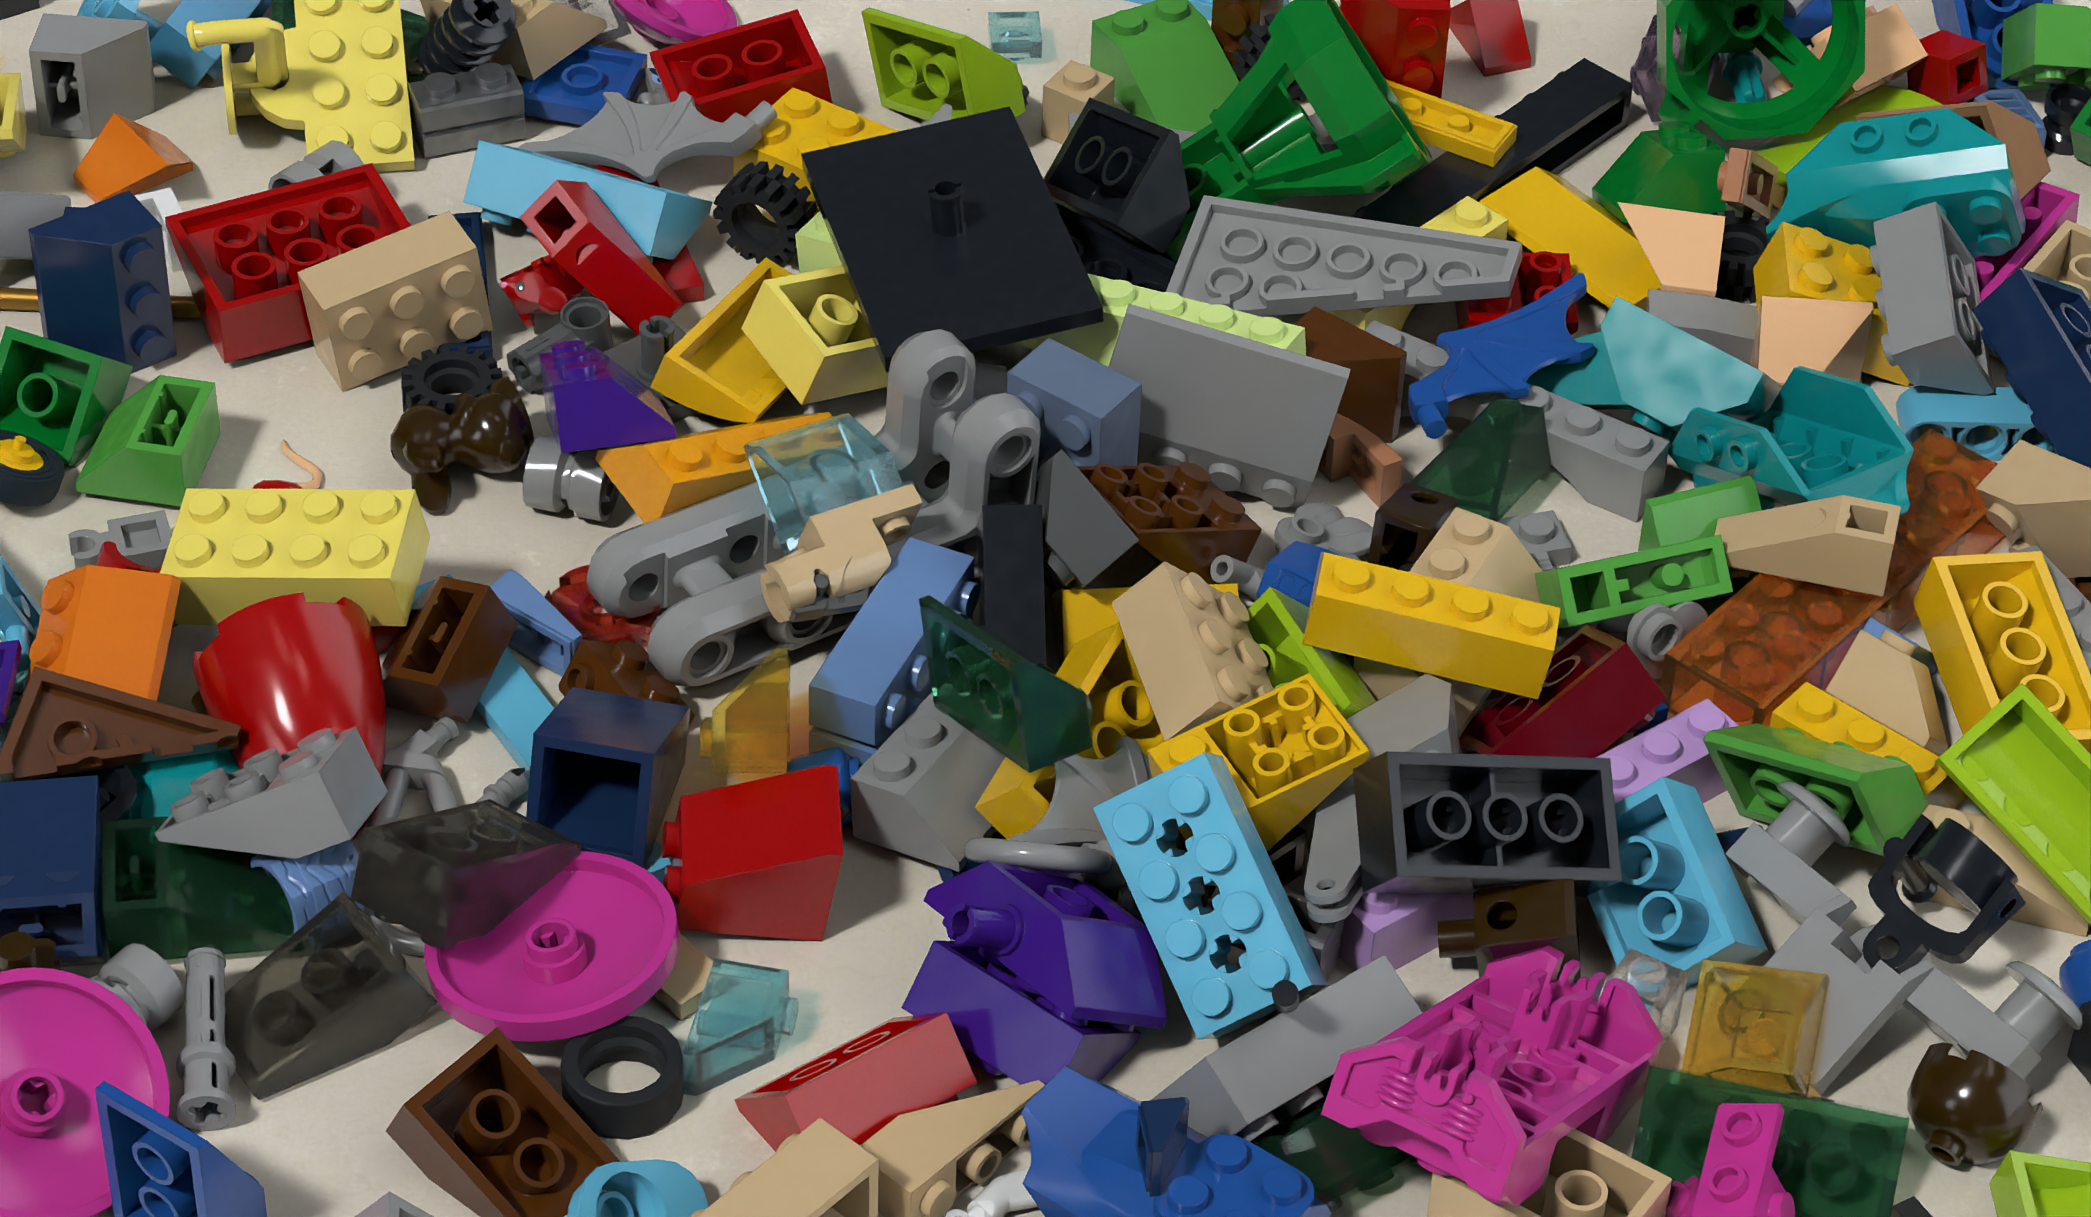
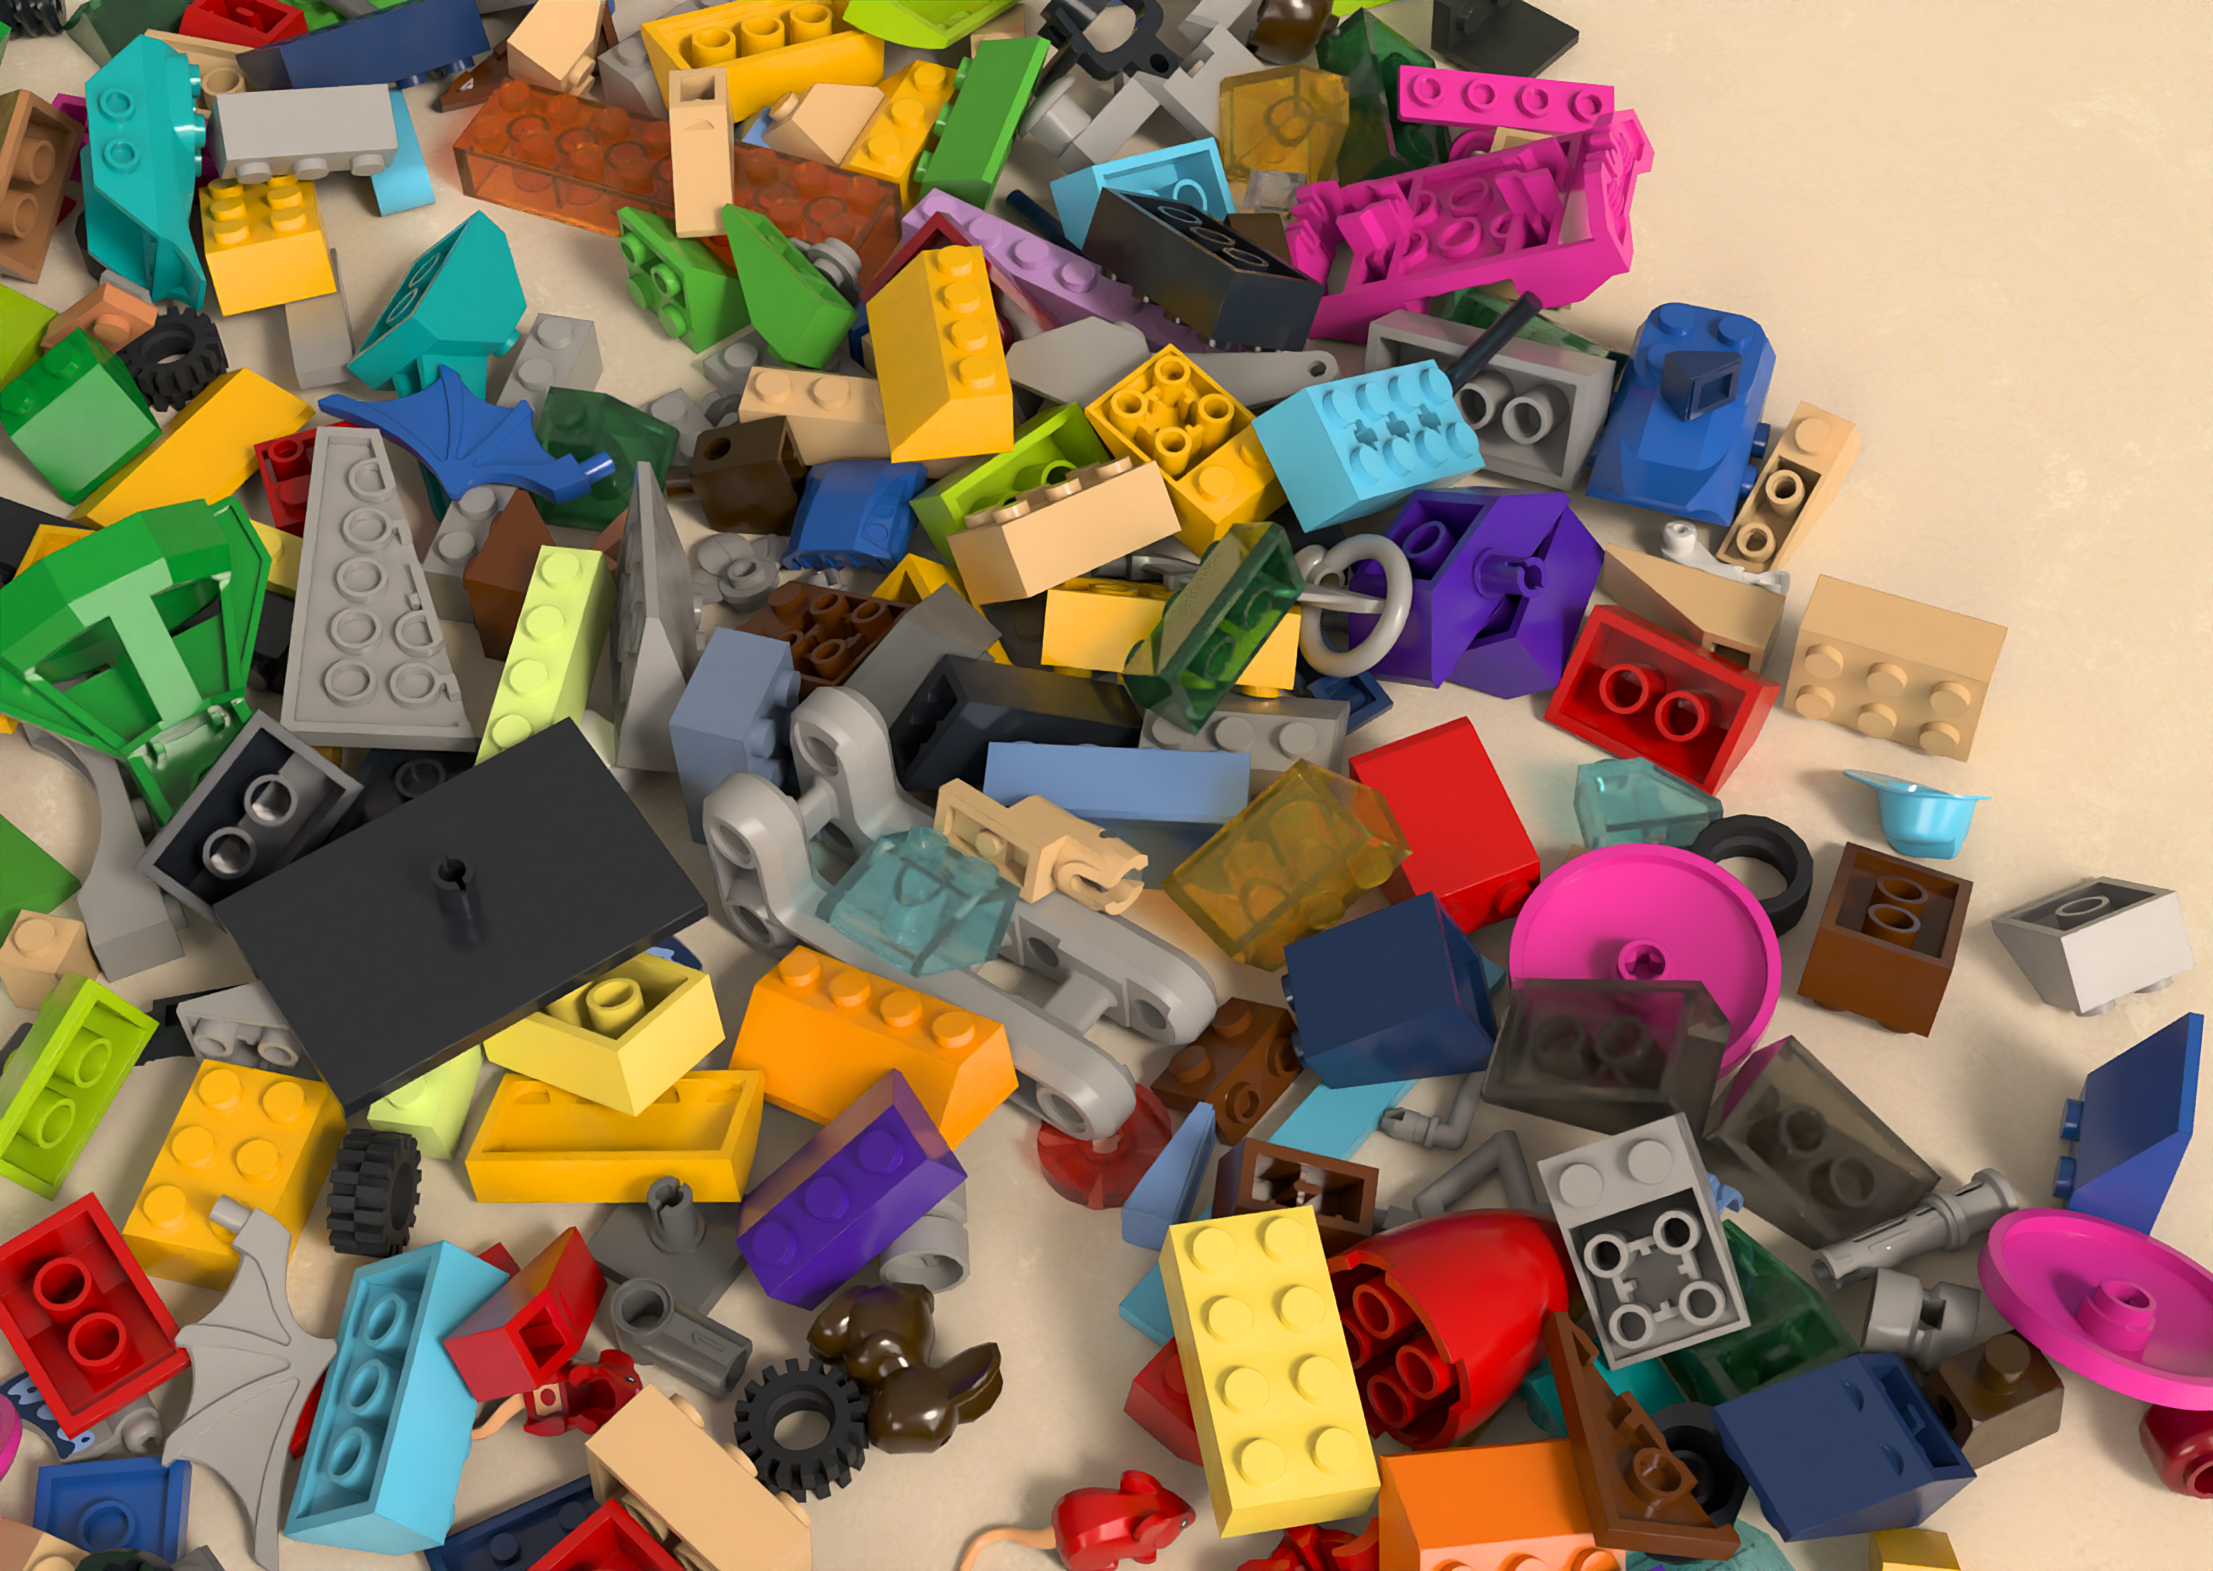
camera: 105 degrees left, 10 degrees up
(1680, 246) = (227, 350): light nougat slope -> none
(1811, 334) = (363, 255): light nougat slope -> none
(1811, 445) = (555, 186): teal slope -> none

